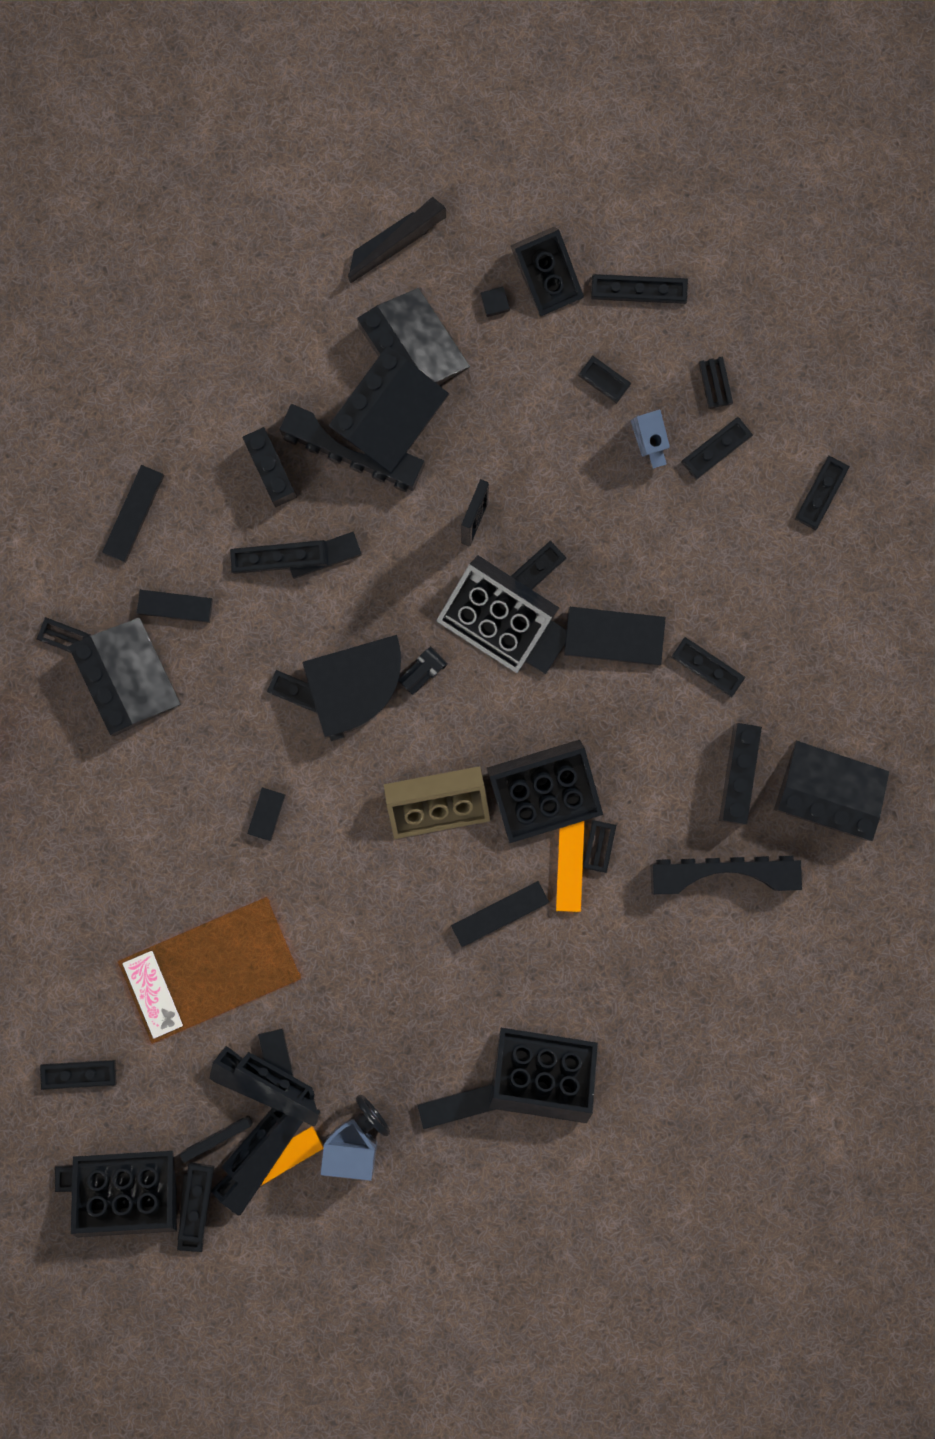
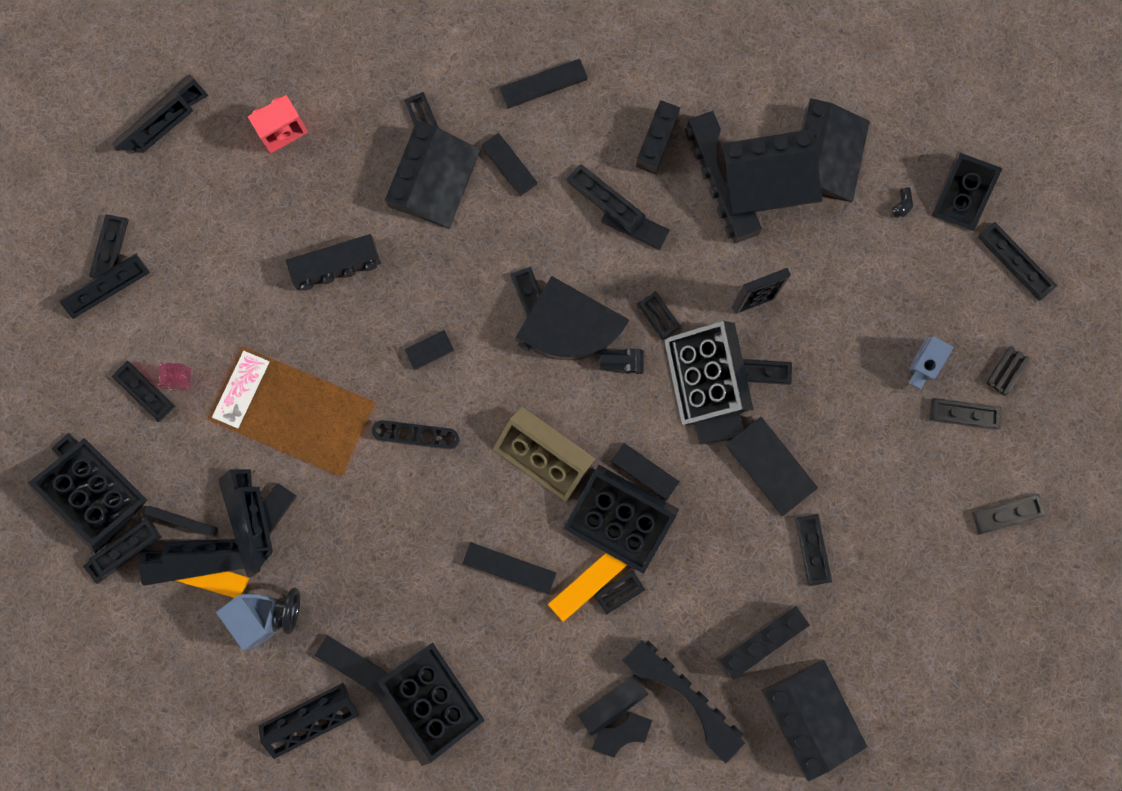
camera: 50 degrees right, 5 degrees down
(93, 1038) = (175, 376): none -> clear pink brick
(119, 824) = (333, 262): none -> black brick
(324, 888) = (416, 431): none -> black beam
(393, 603) = (669, 331): none -> black tile
(395, 238) = (886, 76): black wedge -> none
(465, 1180) = (304, 718): none -> black fence
(495, 301) = (911, 177): black tile -> none
(512, 327) = (905, 205): none -> black arm
(525, 737) = (645, 471): none -> black tile
(604, 379) = (934, 296): black tile -> none
(679, 933) = (613, 705): none -> black tile
(703, 958) = (632, 729): none -> black tile

